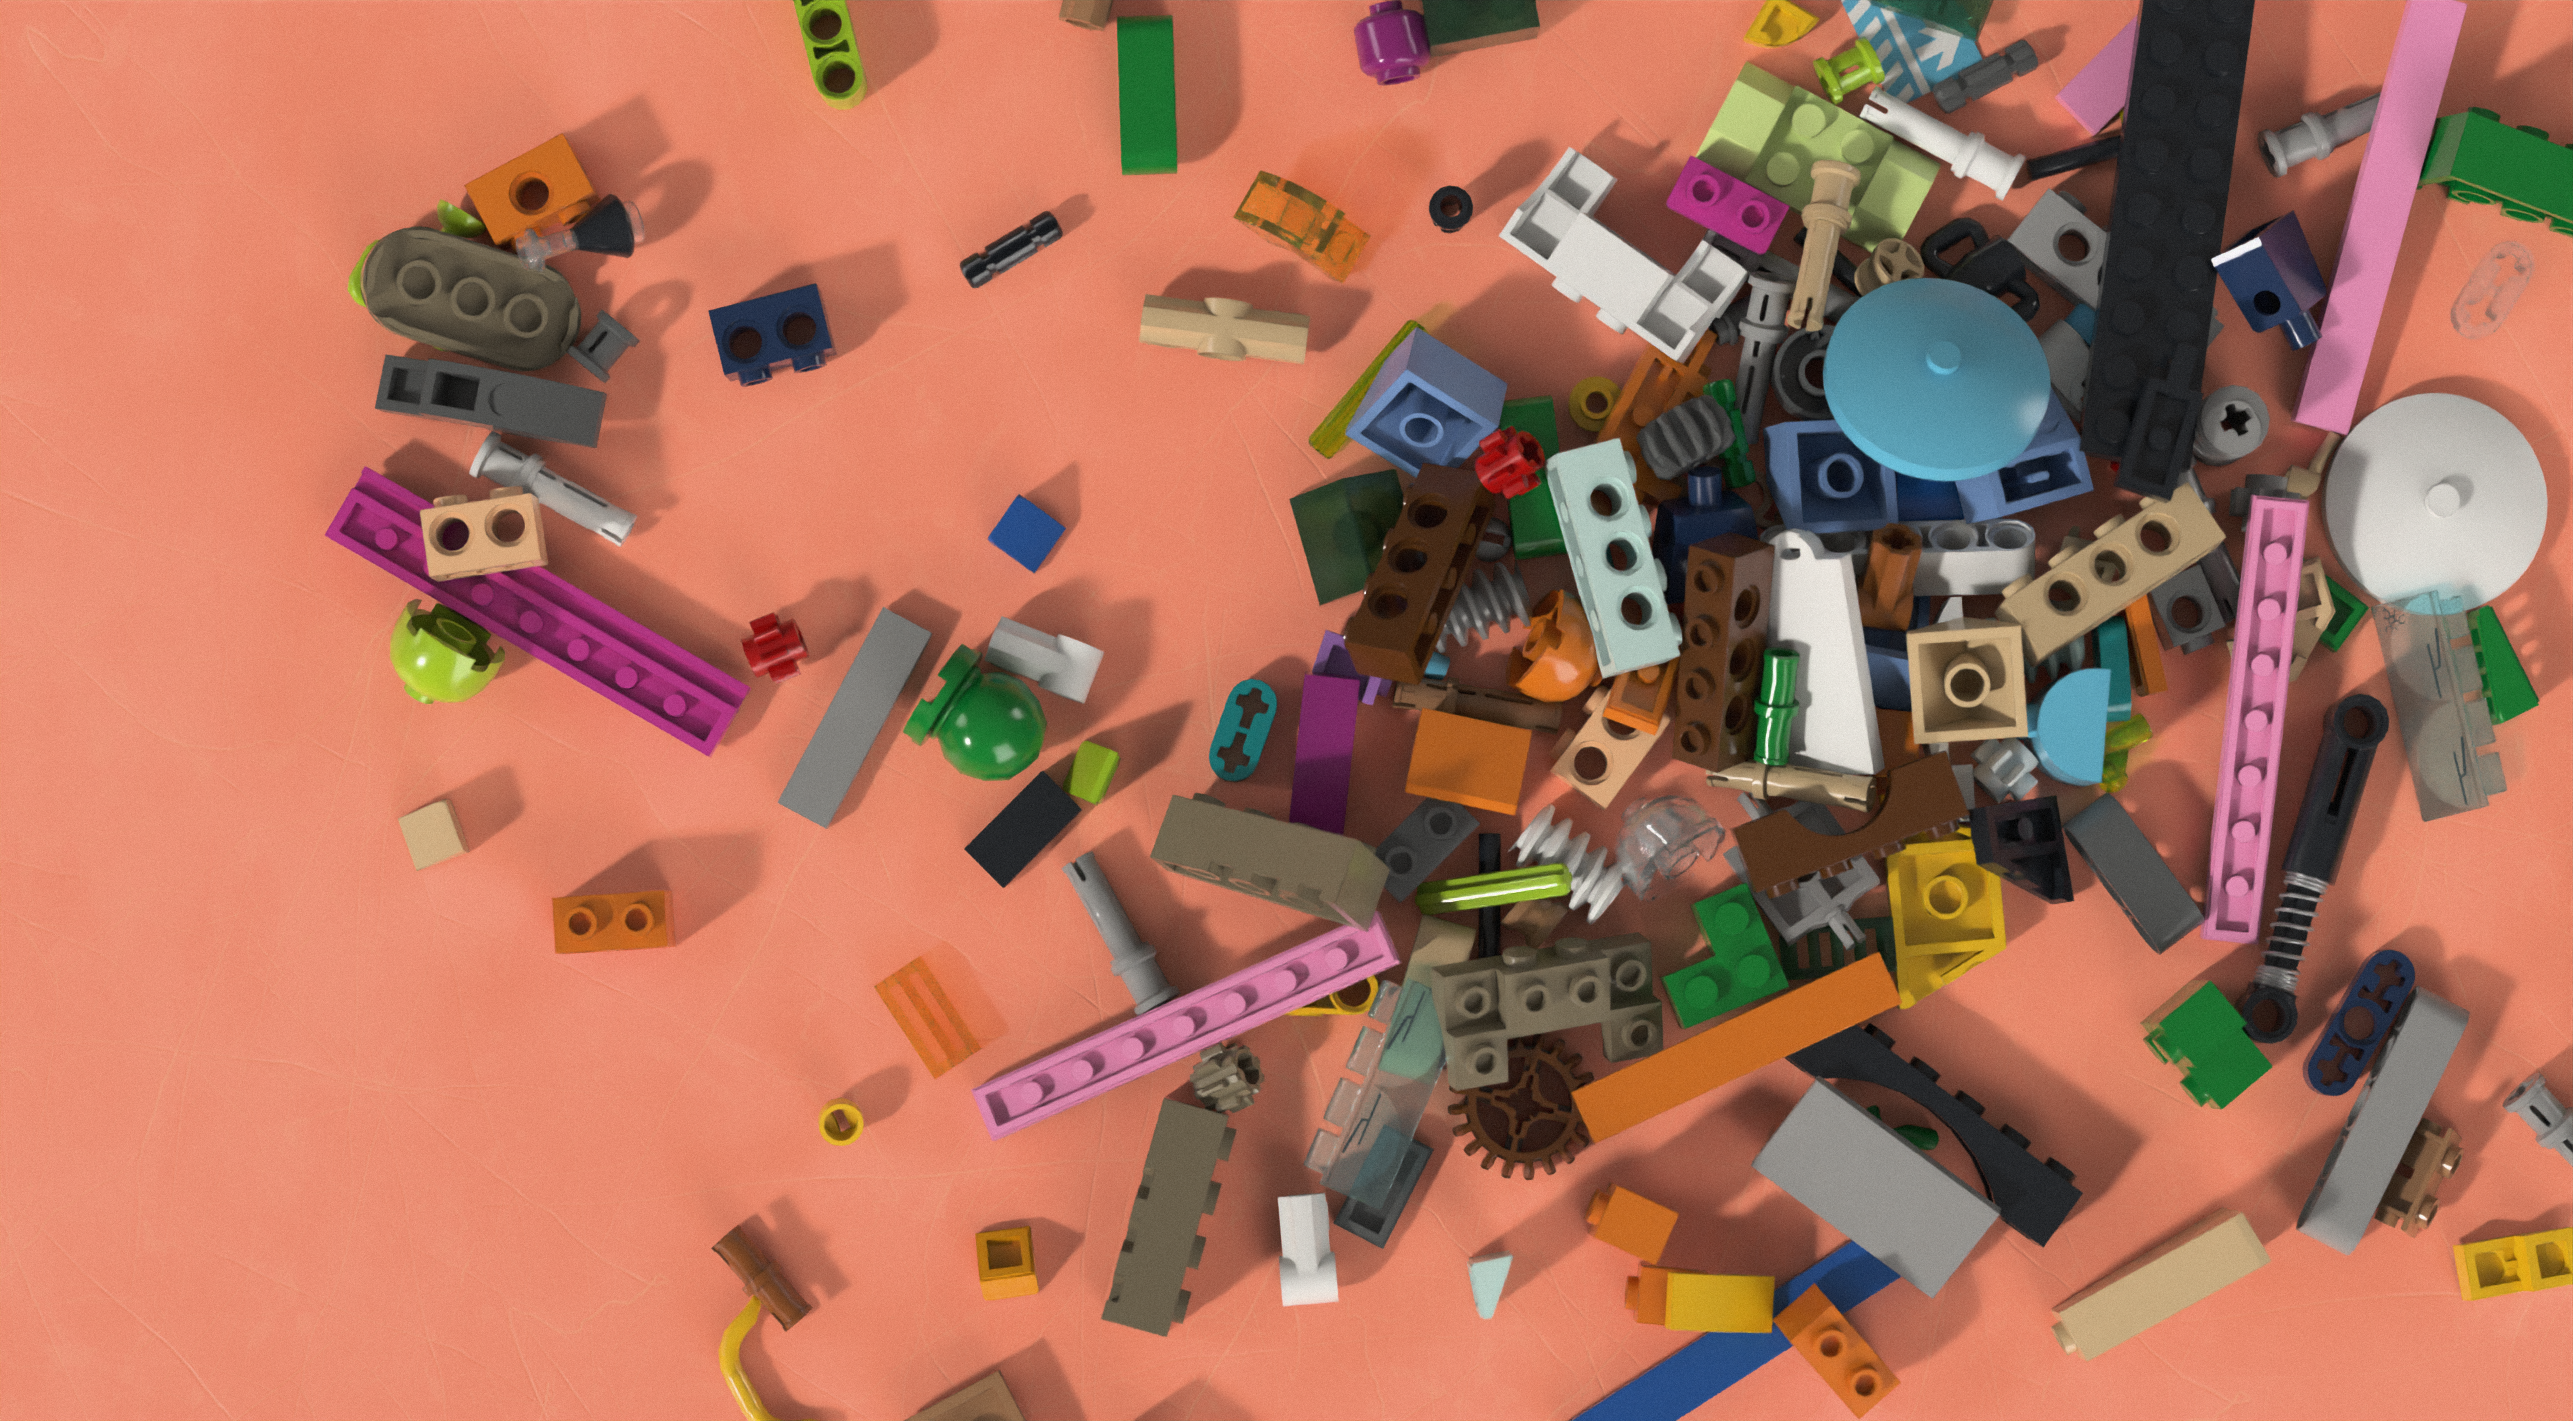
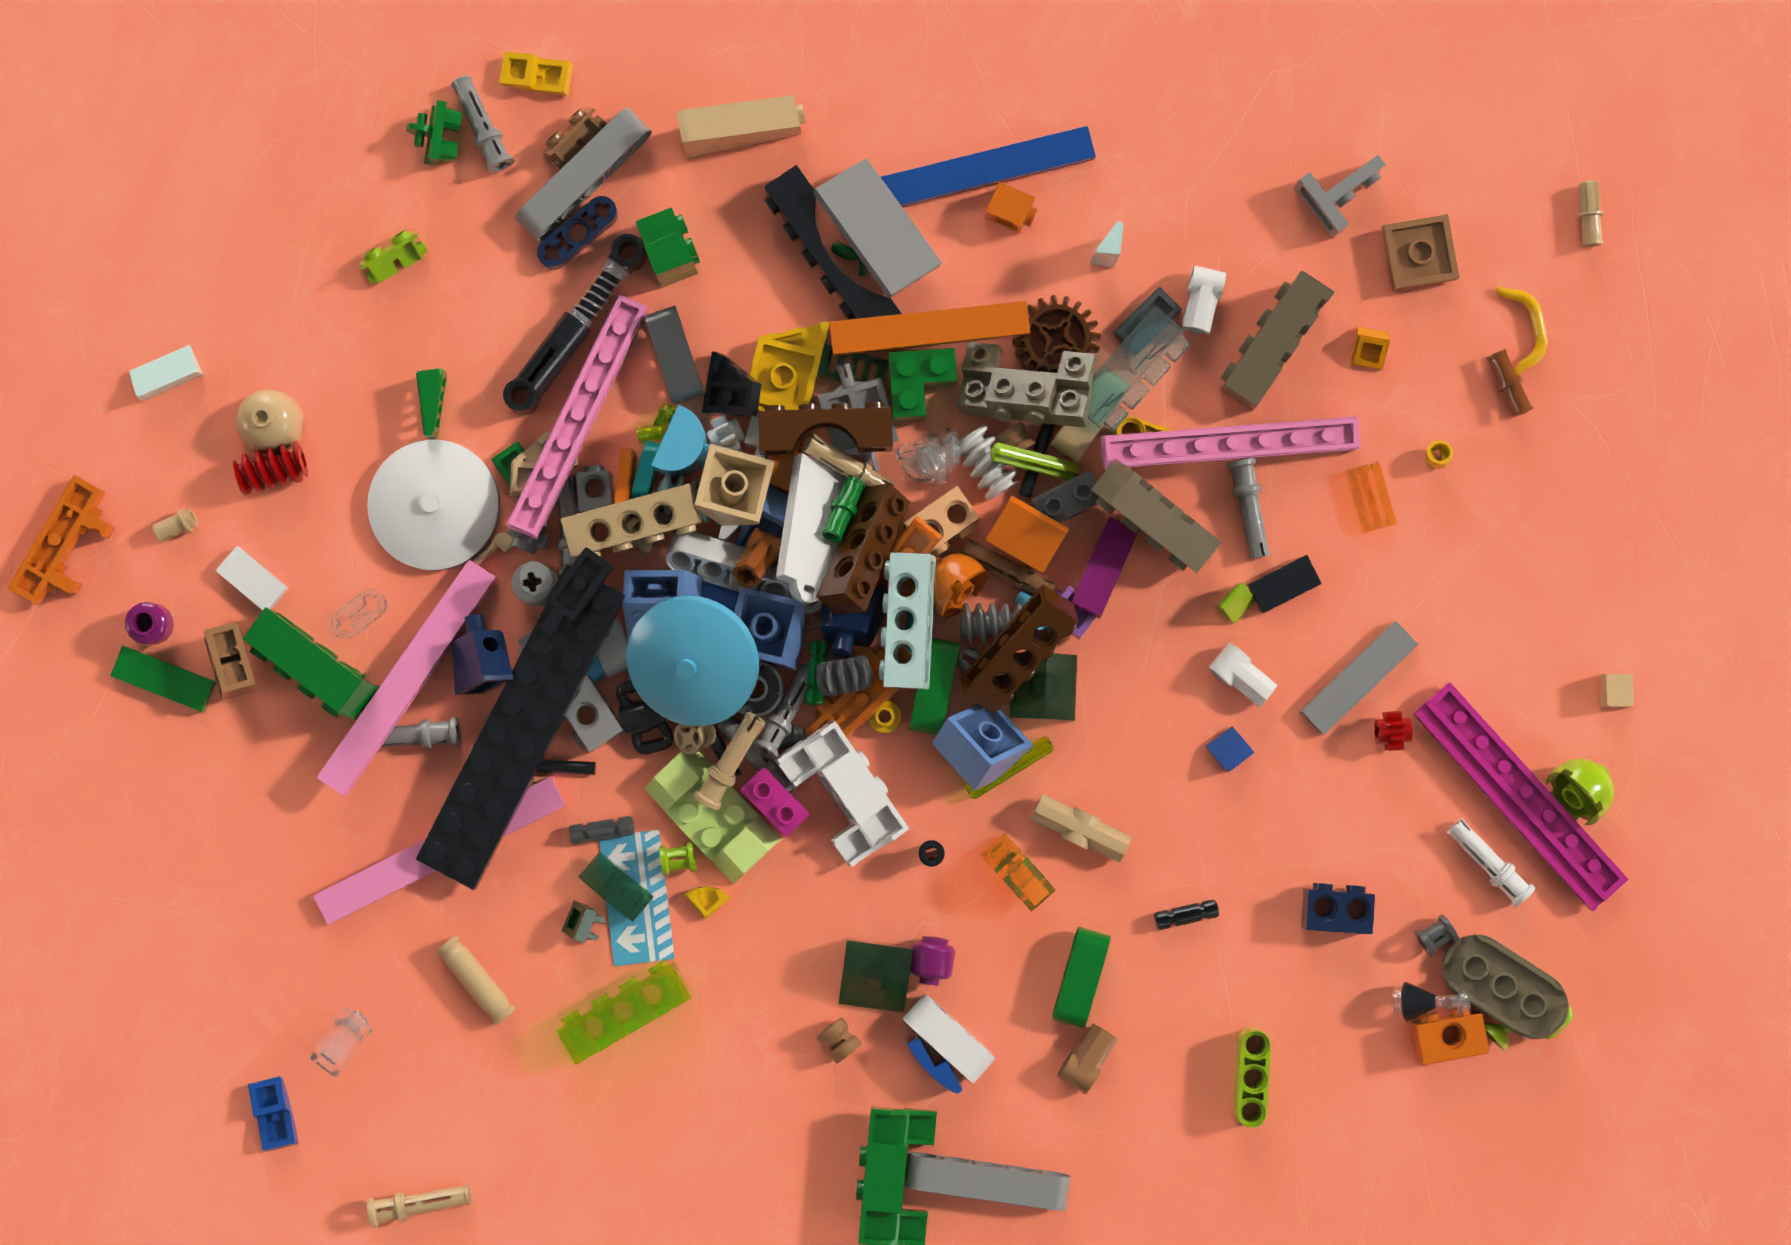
camera: 165 degrees left, 0 degrees up
(484, 549) = (1541, 841): light nougat brick -> none
(491, 400) = (1510, 924): dark grey slope -> none
(613, 922) = (1532, 606): orange brick -> none
(983, 721) = (1291, 649): green tile -> none
(1227, 1078) = (1216, 407): dark tan gear -> none
(1256, 734) = (1149, 603): teal beam -> none
(1509, 462) = (948, 695): red gear -> none
(1630, 1222) = (1020, 252): orange brick -> none
(1719, 1302) = (985, 193): yellow slope -> none
(1836, 1351) = (929, 146): orange brick -> none
(1967, 154) = (627, 788): white pin -> none
(2428, 698) = (476, 386): clear light blue windscreen -> none

